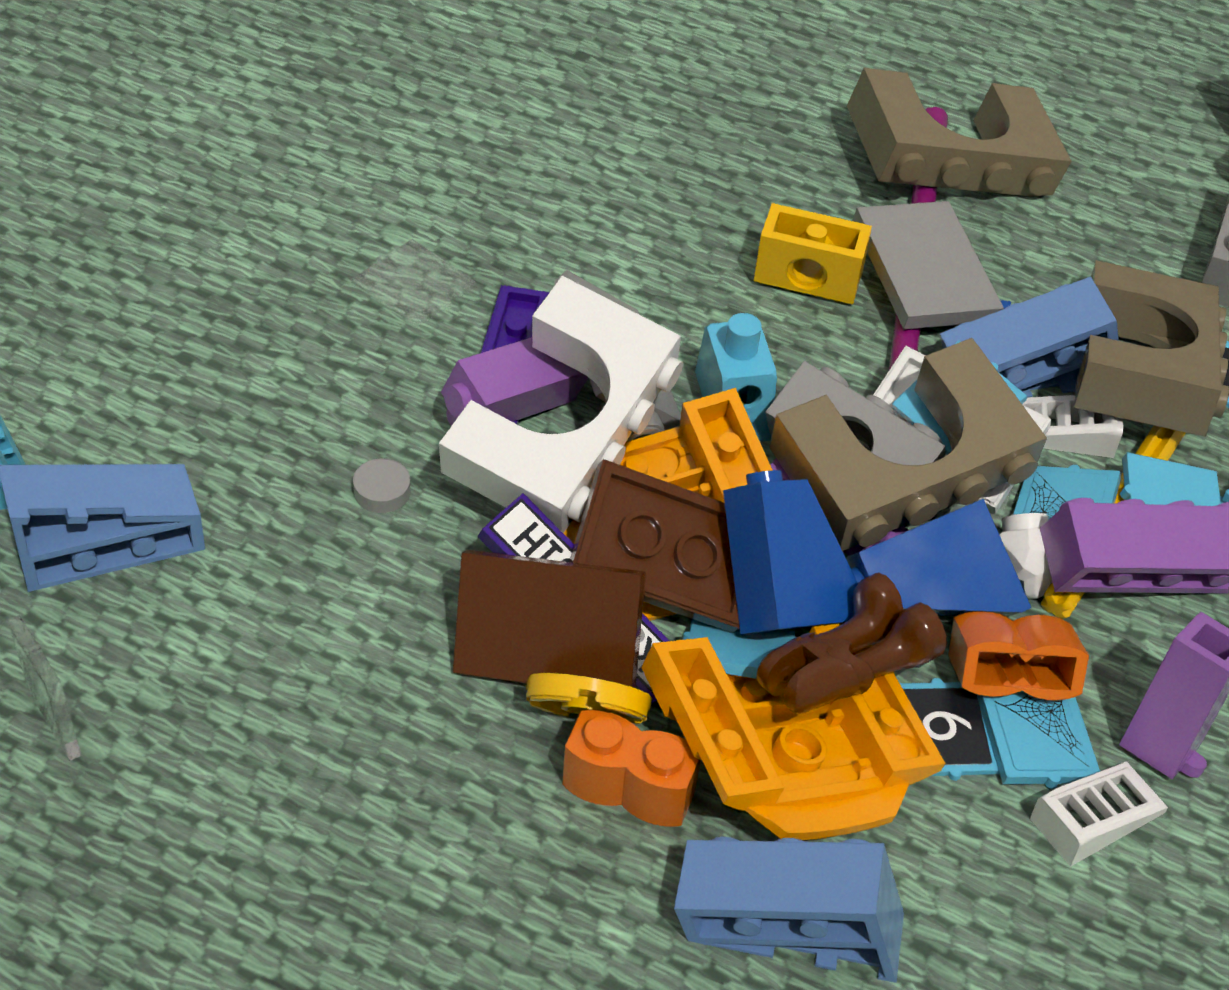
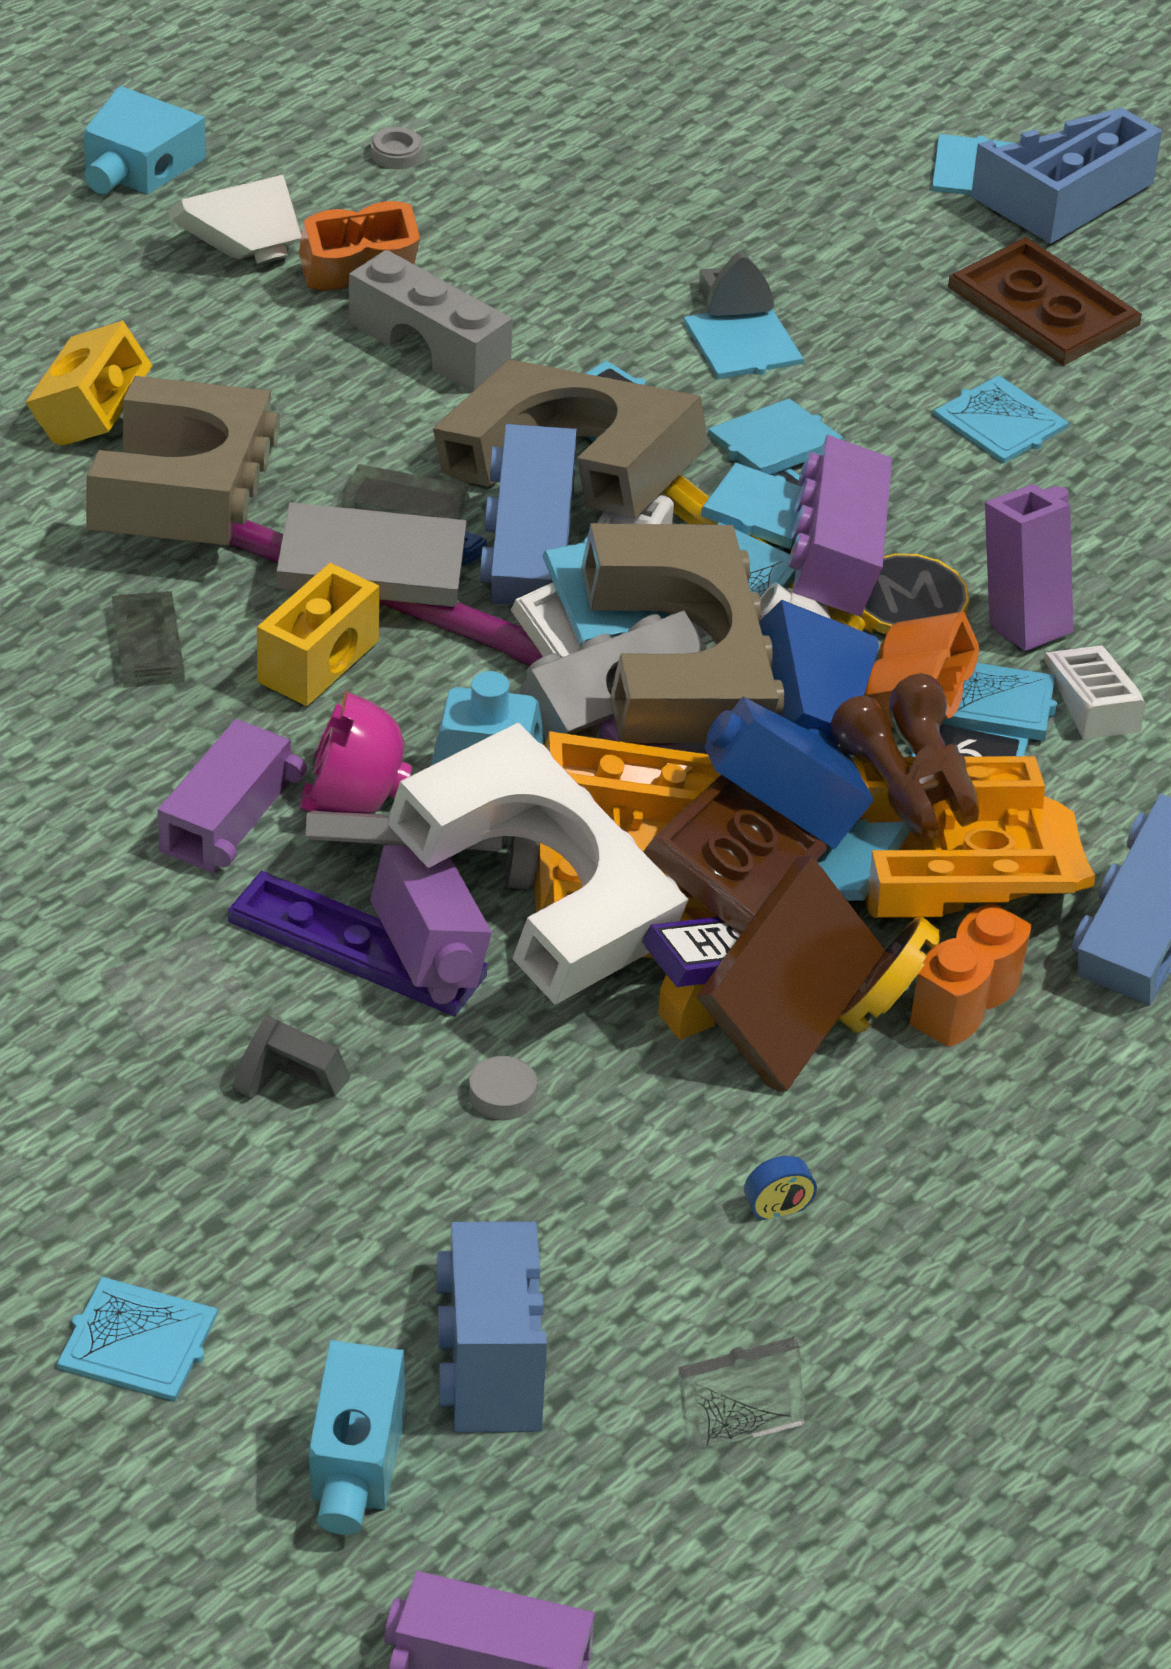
camera: 70 degrees left, 5 degrees down
(60, 344) = (137, 1339): none -> medium azure piece
(320, 681) = (780, 1187): none -> tile
(351, 350) = (292, 1052): none -> dark grey tile
(617, 250) = (226, 795): none -> medium lavender brick
(682, 298) = (356, 760): none -> dark pink cylinder
(775, 180) = (148, 639): none -> clear smoke tile
(1024, 270) = (404, 493): none -> clear smoke tile
(1033, 68) = (88, 384): none -> yellow brick
(1127, 636) = (913, 589): none -> black tile

